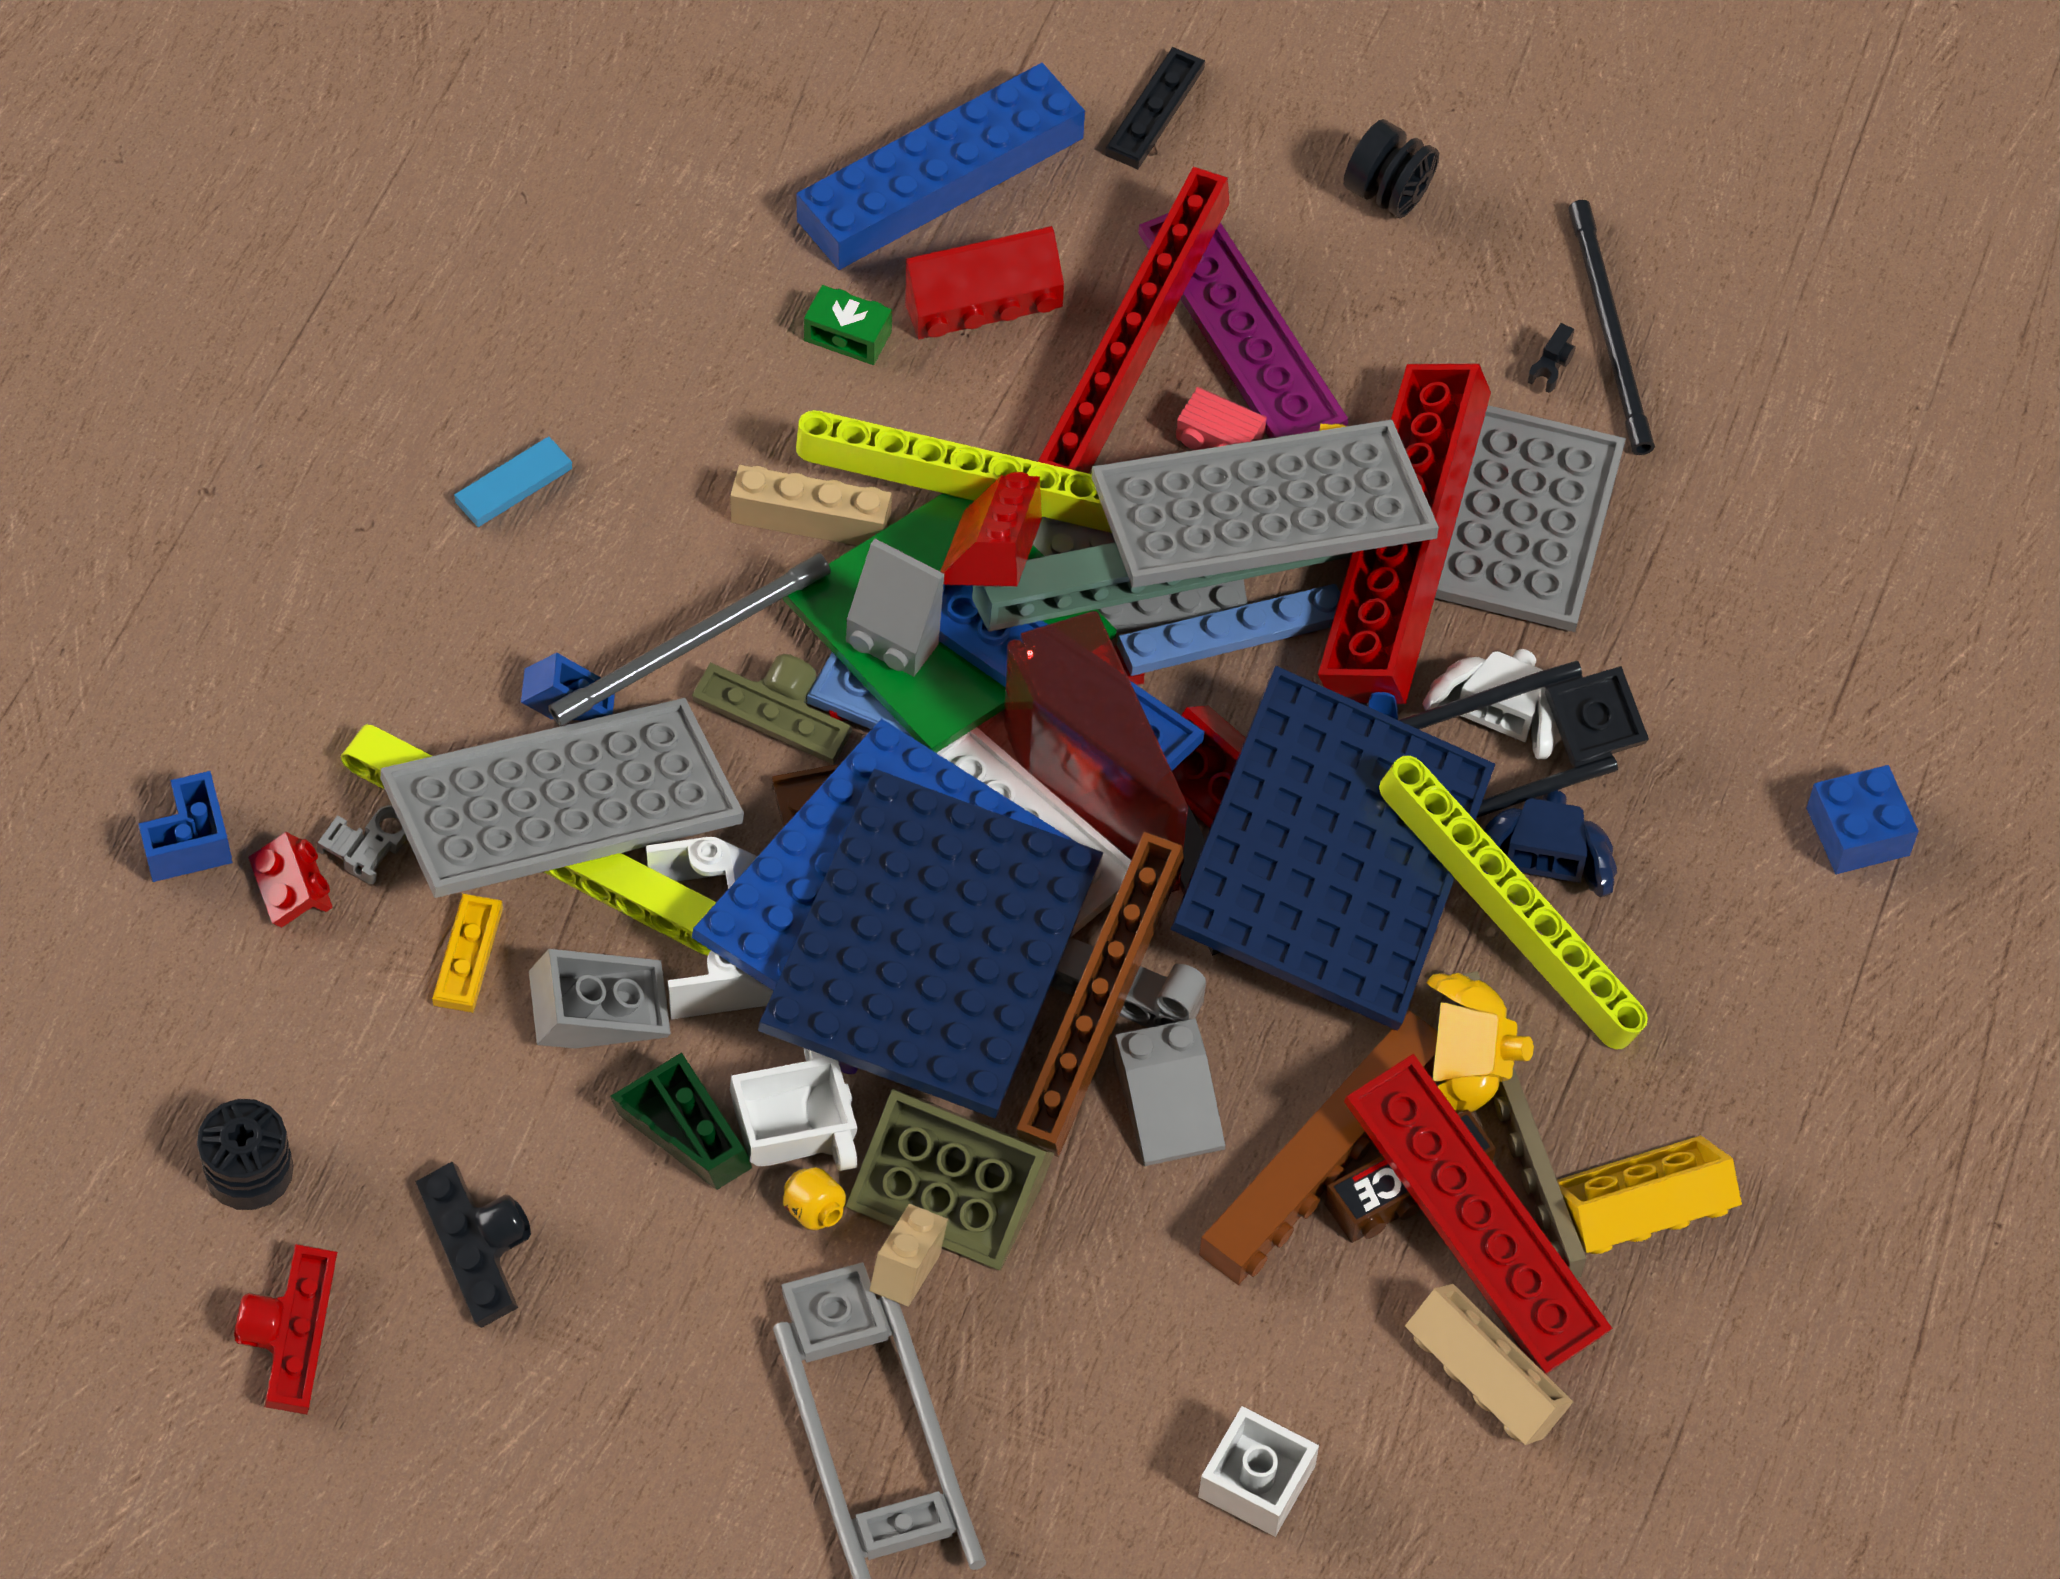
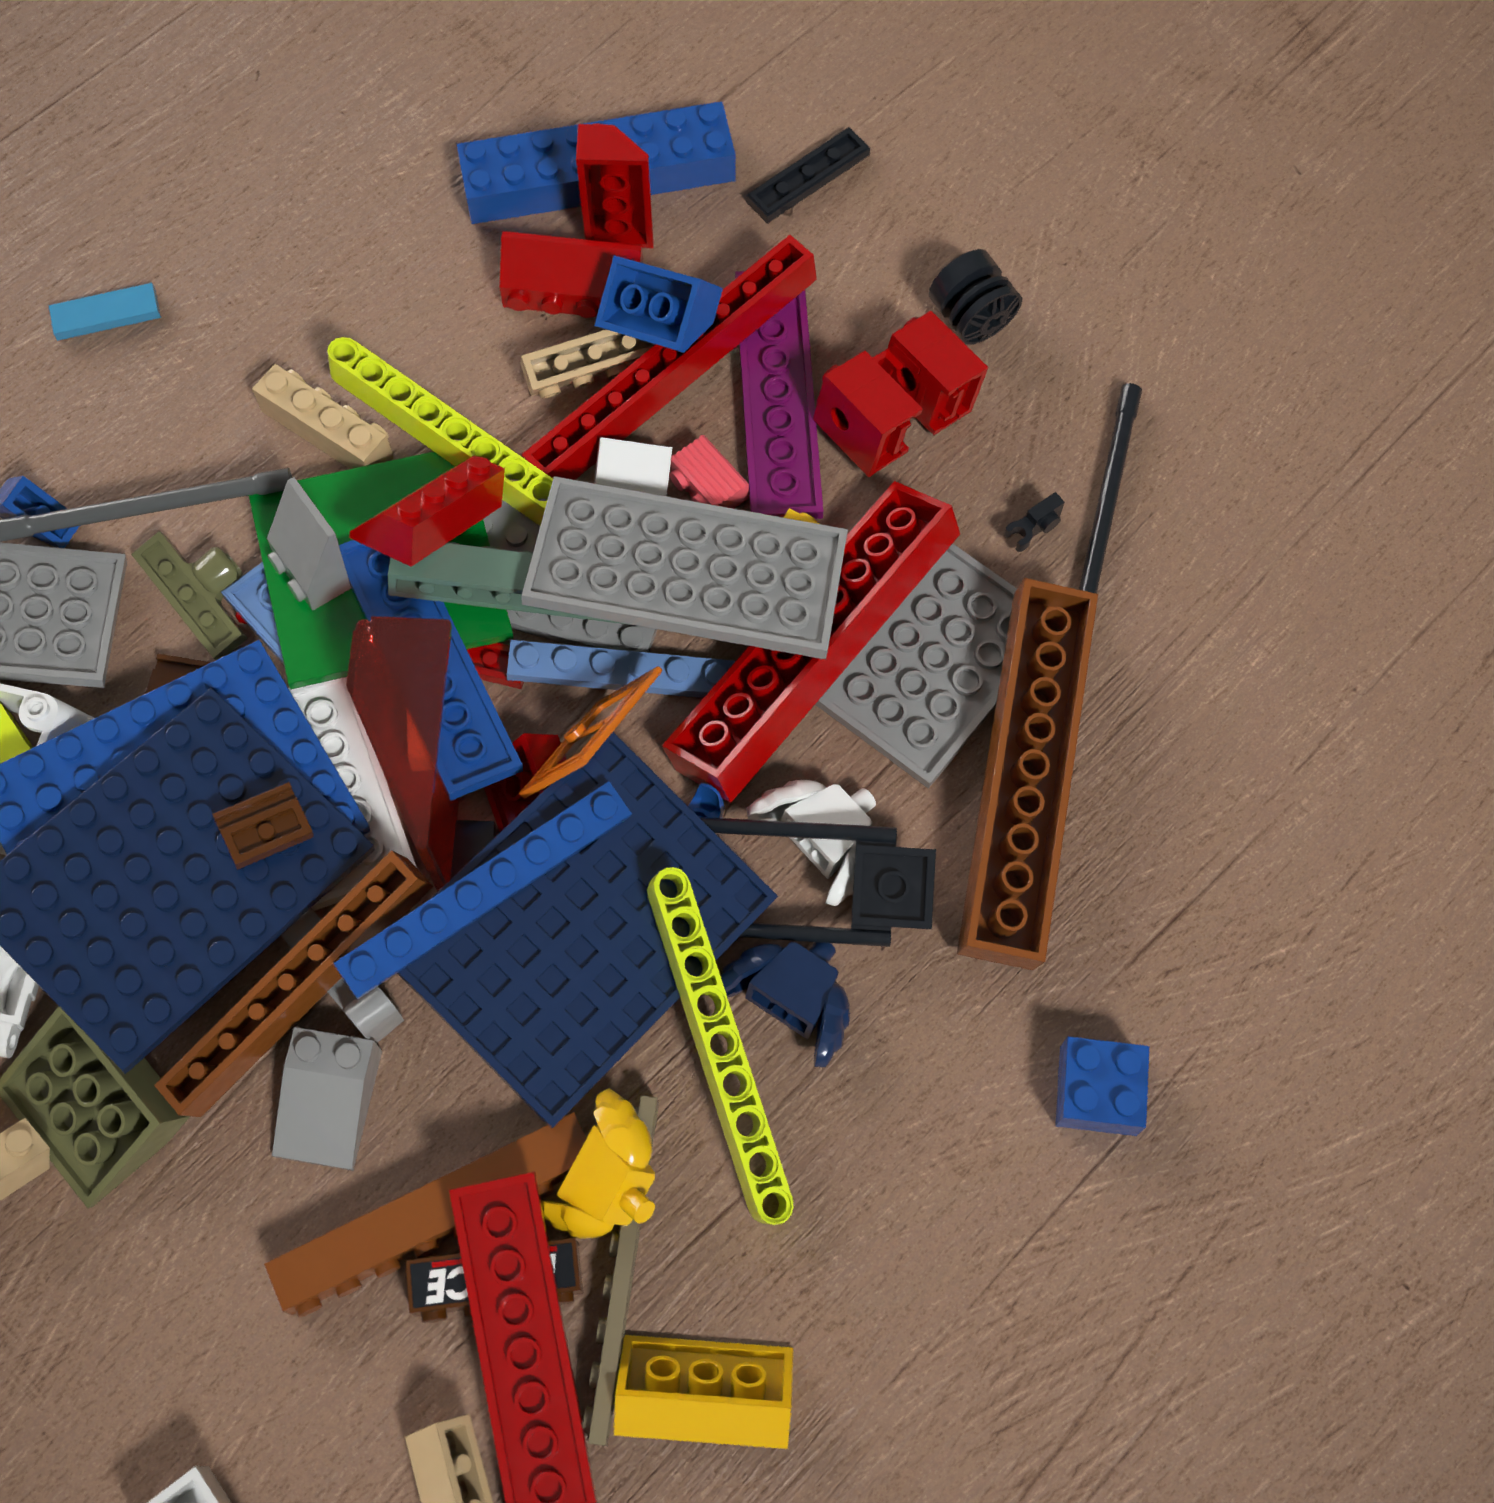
camera: 25 degrees right, 10 degrees up
(848, 324) = (446, 272): green brick -> none
(995, 179) = (614, 186): none -> red slope
(1004, 861) = (263, 825): none -> reddish brown plate
(1047, 350) = (580, 361): none -> tan brick
(1102, 274) = (657, 304): none -> blue slope
(1145, 435) = (633, 466): none -> white tile
(1234, 686) = (550, 772): none -> orange door
(1241, 838) = (481, 890): none -> blue plate
(1355, 292) = (920, 375): none -> red piece
(1666, 578) = (1028, 776): none -> dark orange brick

